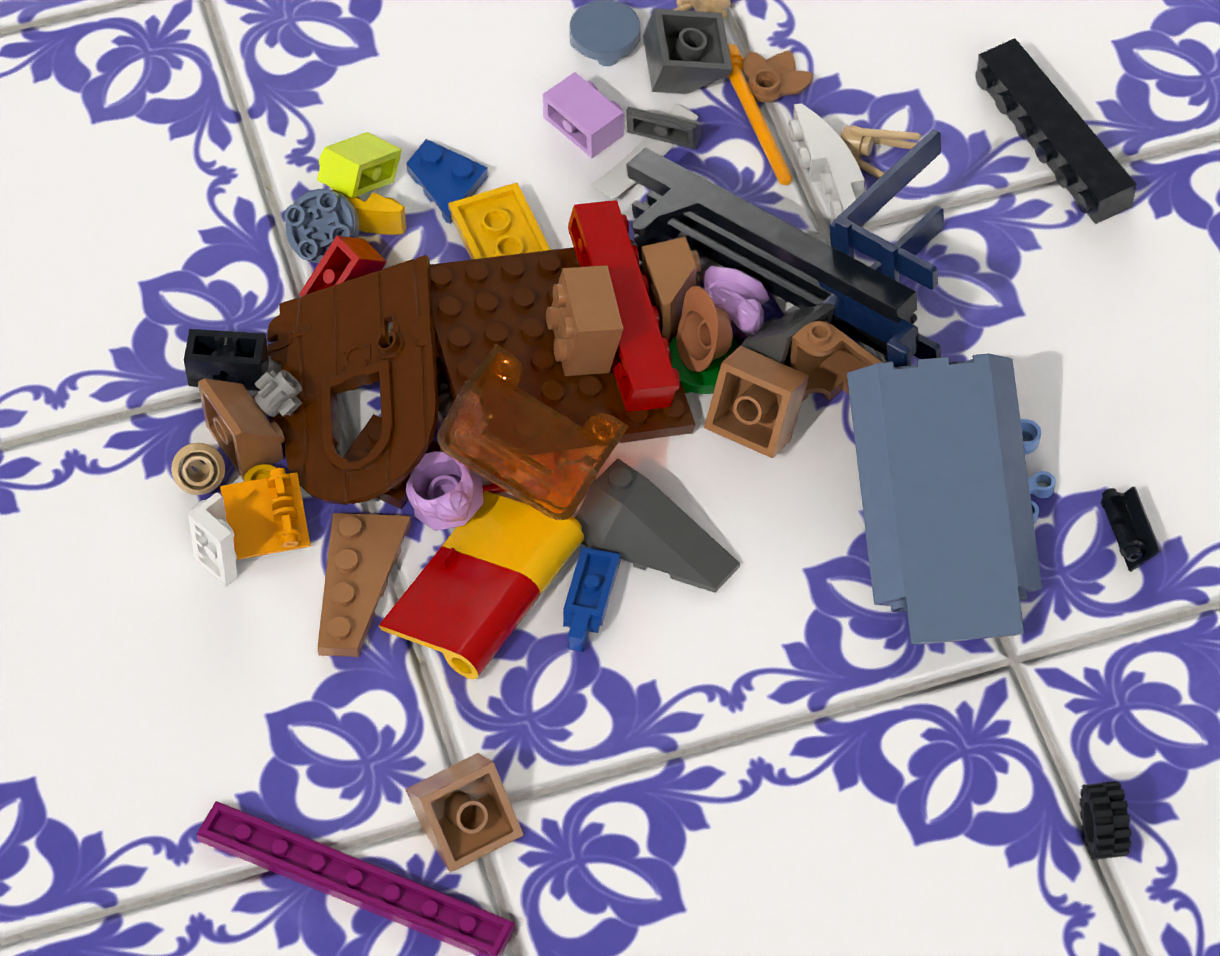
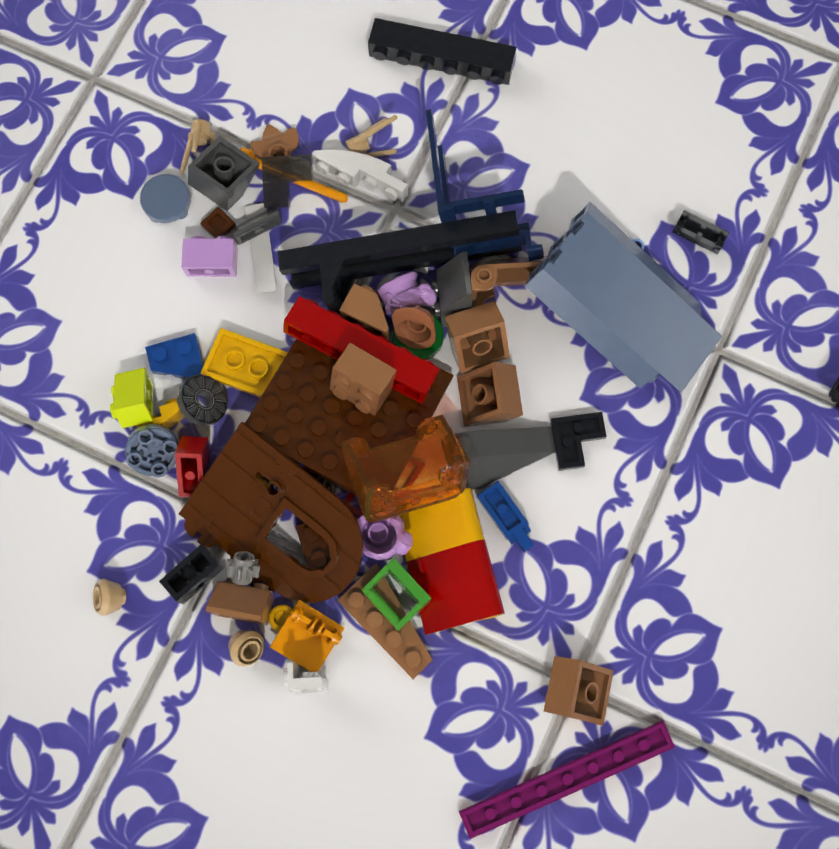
camera: 45 degrees left, 20 degrees up
(130, 313) = (108, 597): none -> tan cone
(399, 582) = (407, 583): none -> bright green tile
(436, 214) = (211, 391): none -> tile
(630, 93) = (218, 223): none -> reddish brown tile
(712, 474) = (490, 394): none -> medium nougat slope
(741, 98) = (278, 173): none -> clear smoke tile
(750, 586) = (570, 432): none -> black tile

